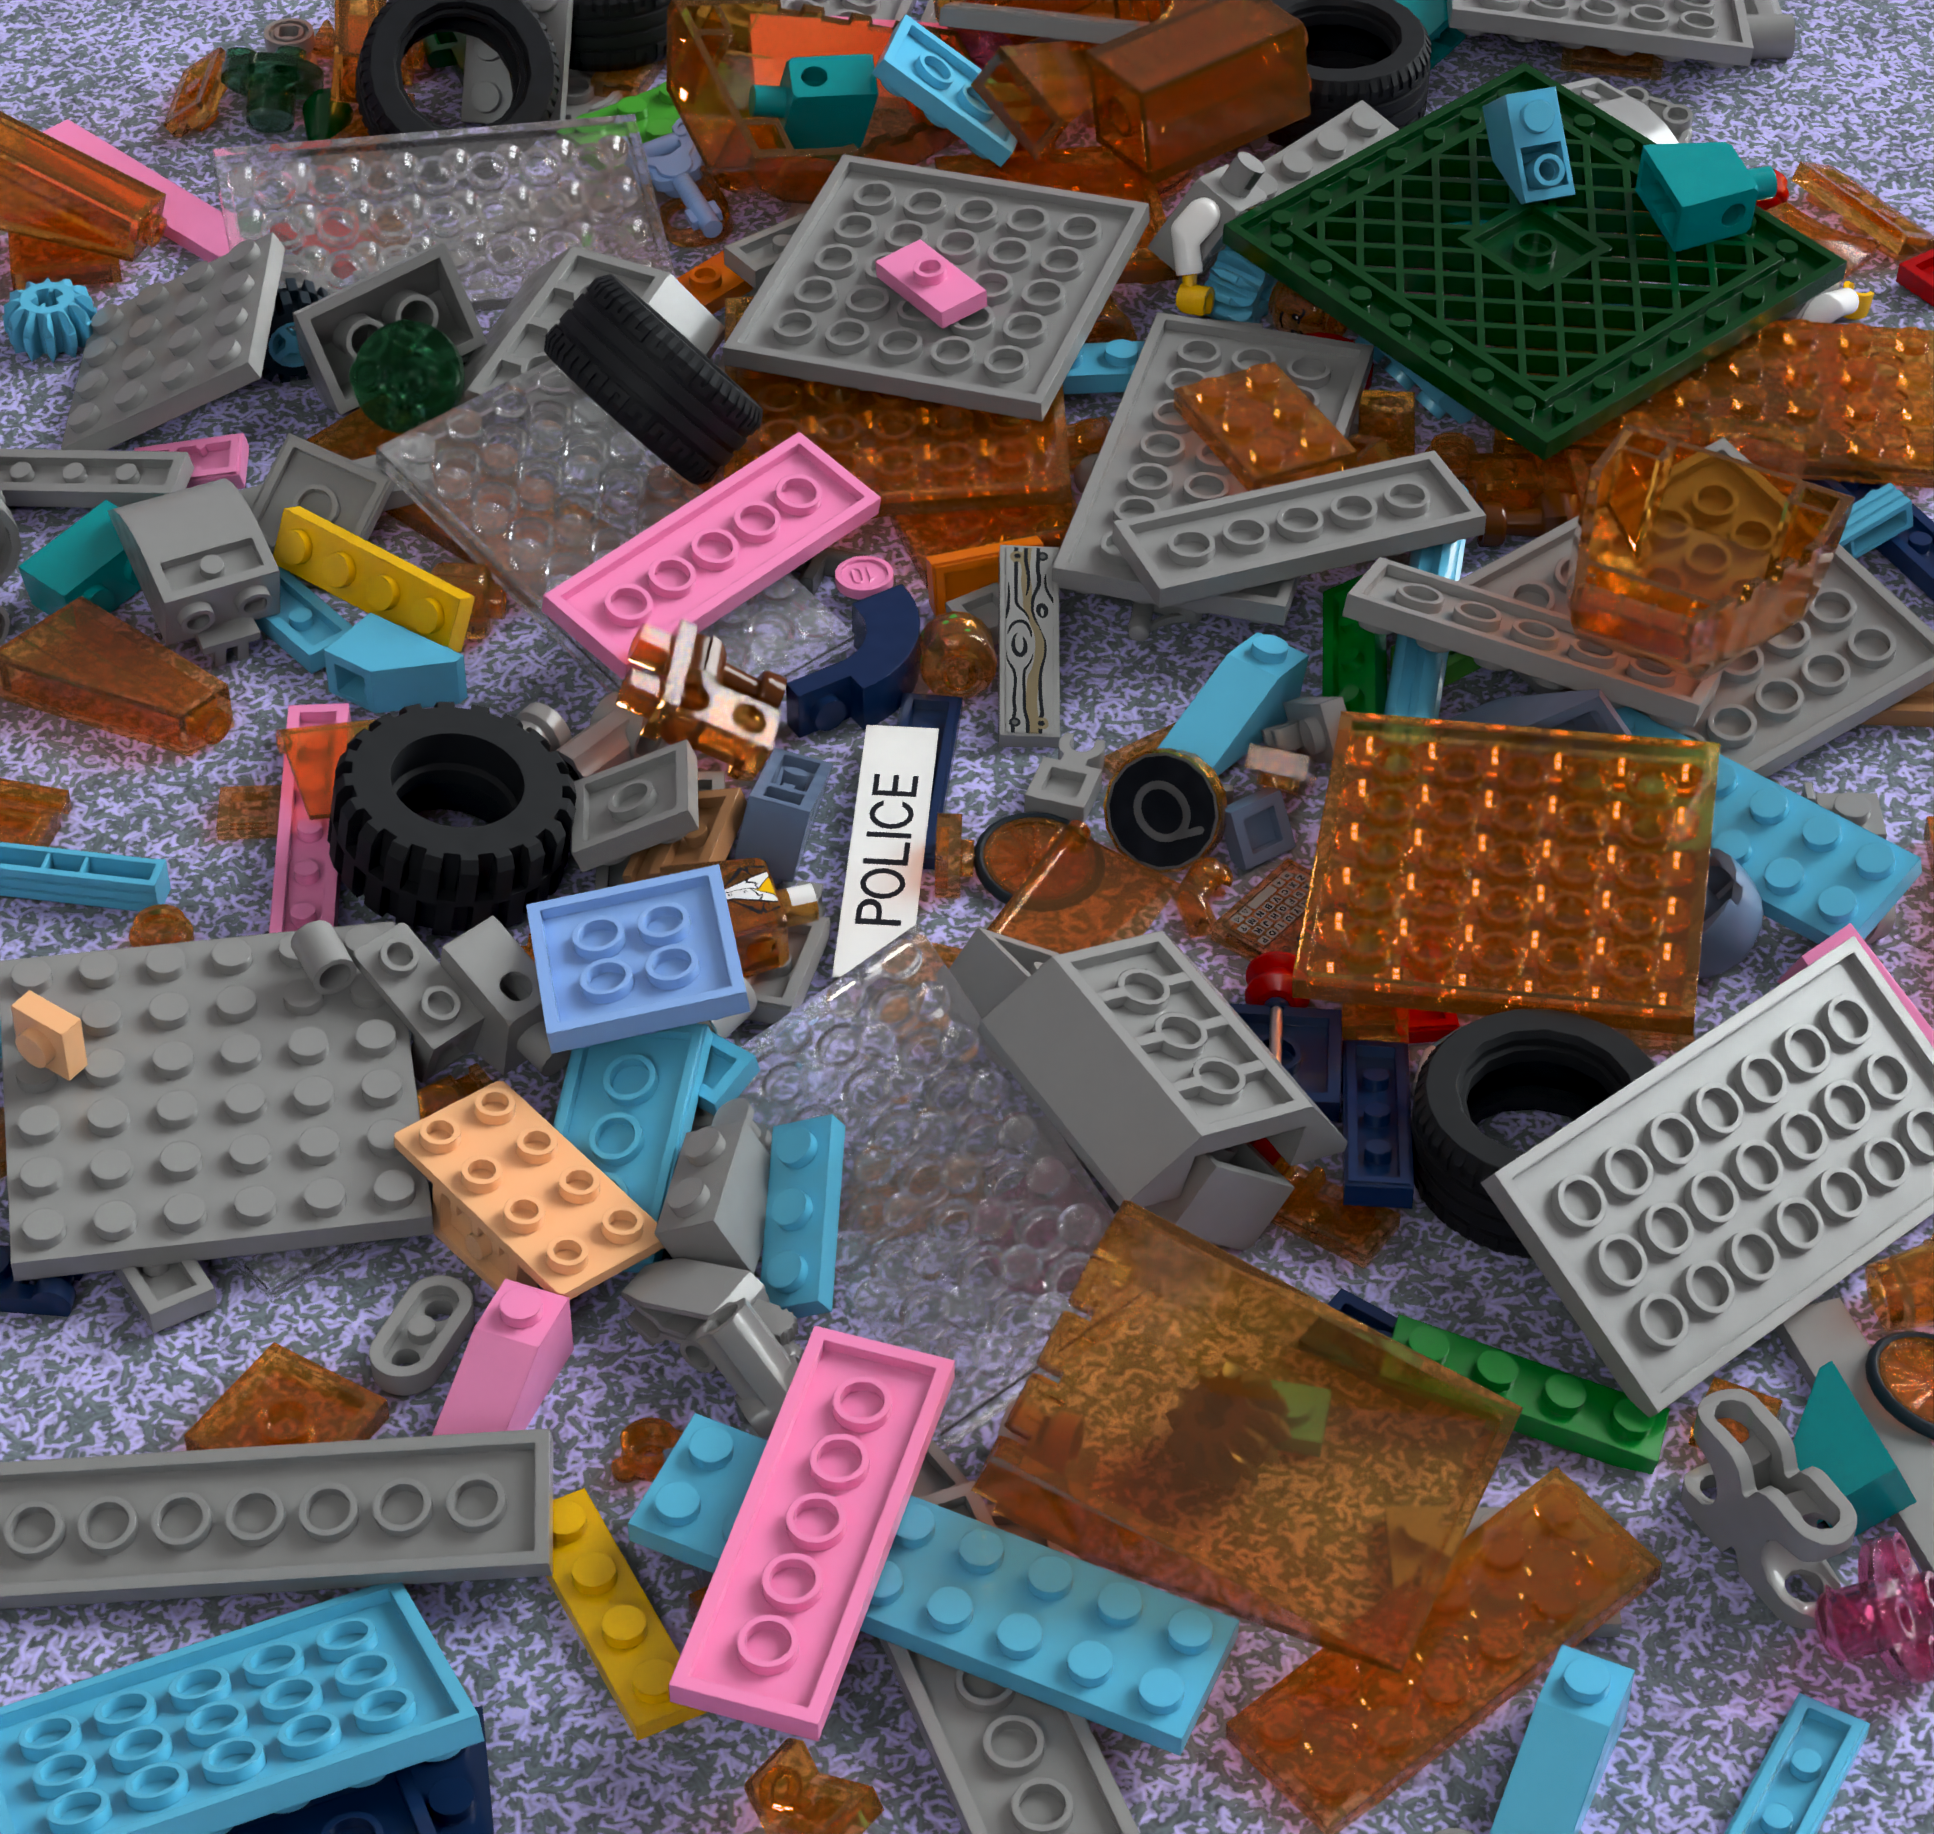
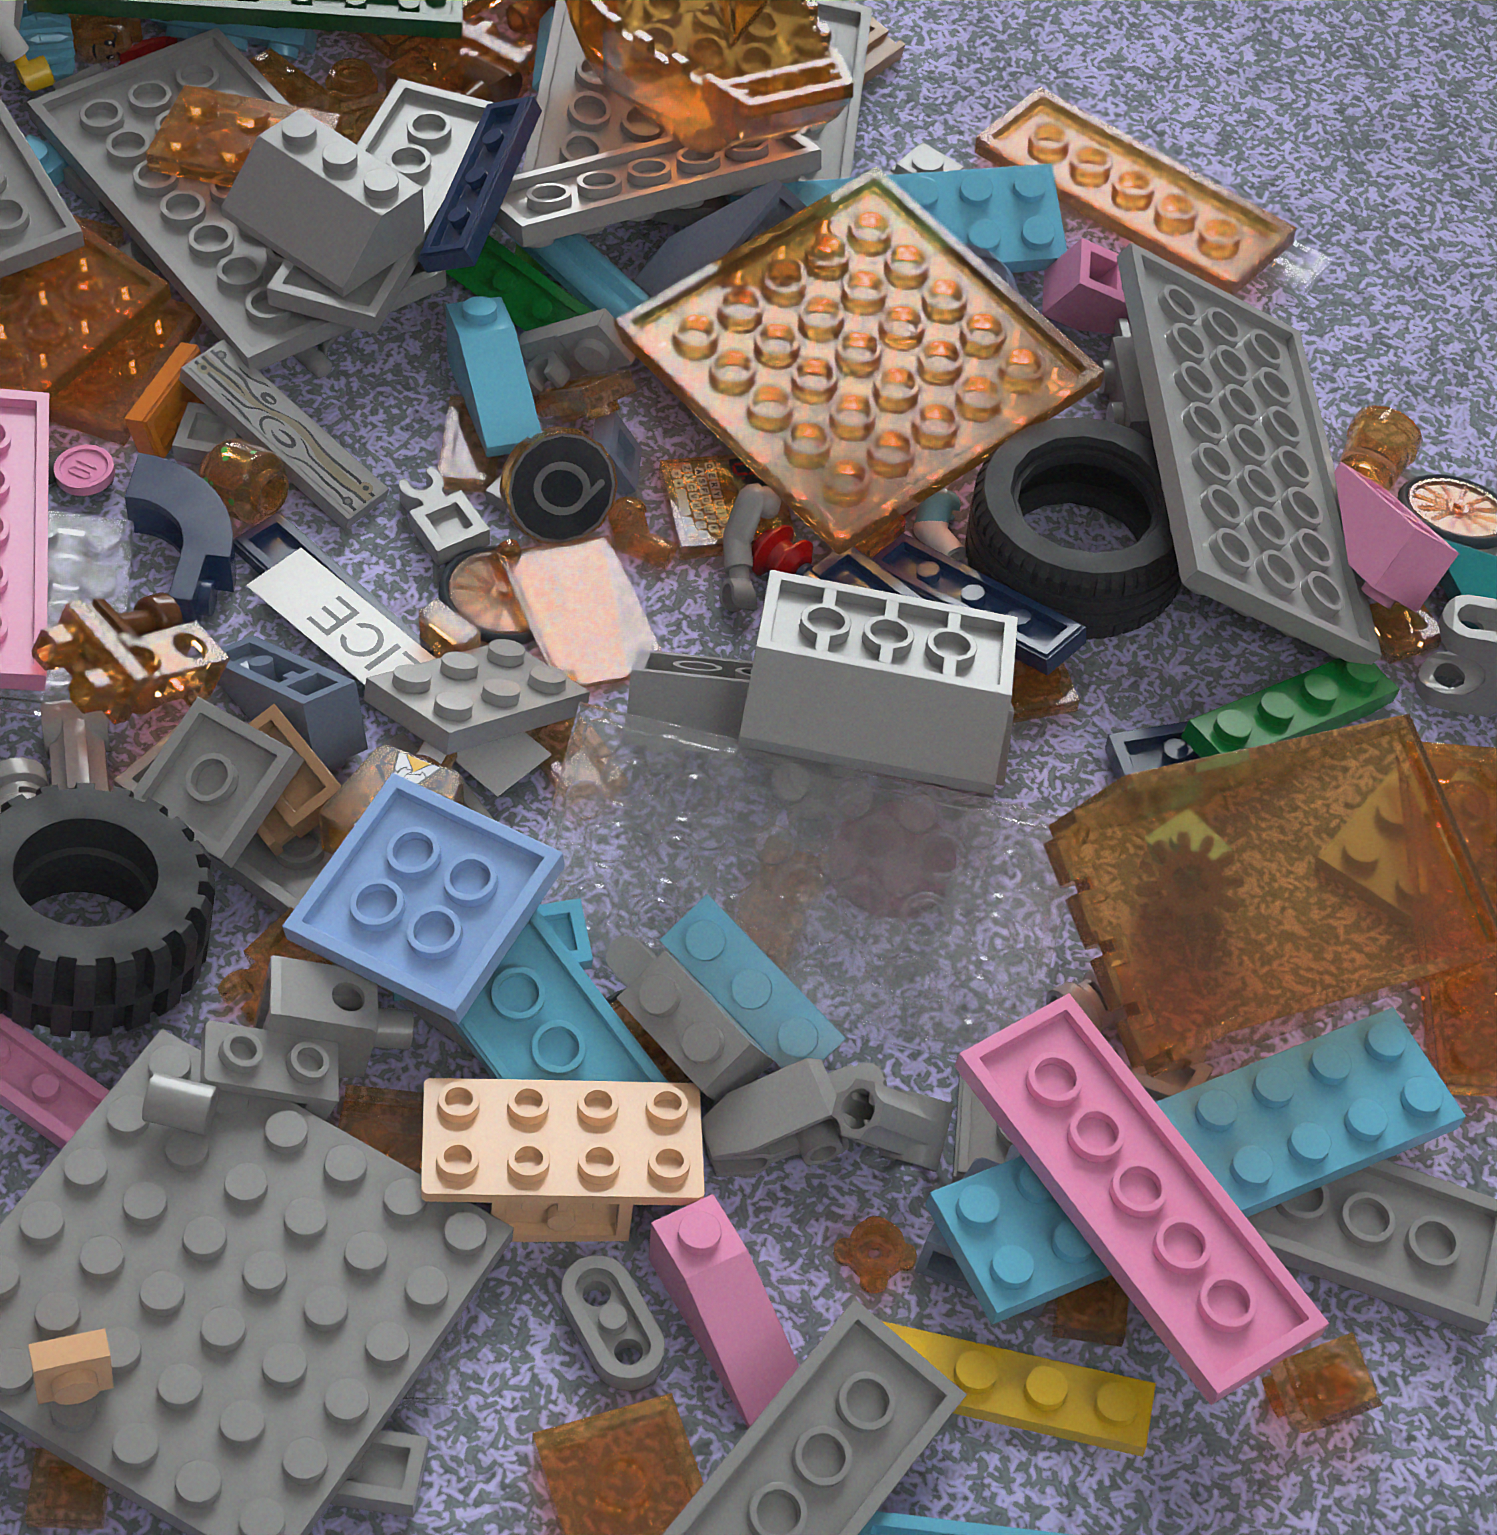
camera: 55 degrees left, 10 degrees up
(888, 887) = (475, 696): none -> light grey plate
(1221, 487) = (325, 203): none -> light grey slope
(1262, 938) = (750, 505): none -> light grey arm
(1373, 552) = (480, 185): none -> dark blue tile
(1794, 1329) = (1389, 543): none -> bright pink slope

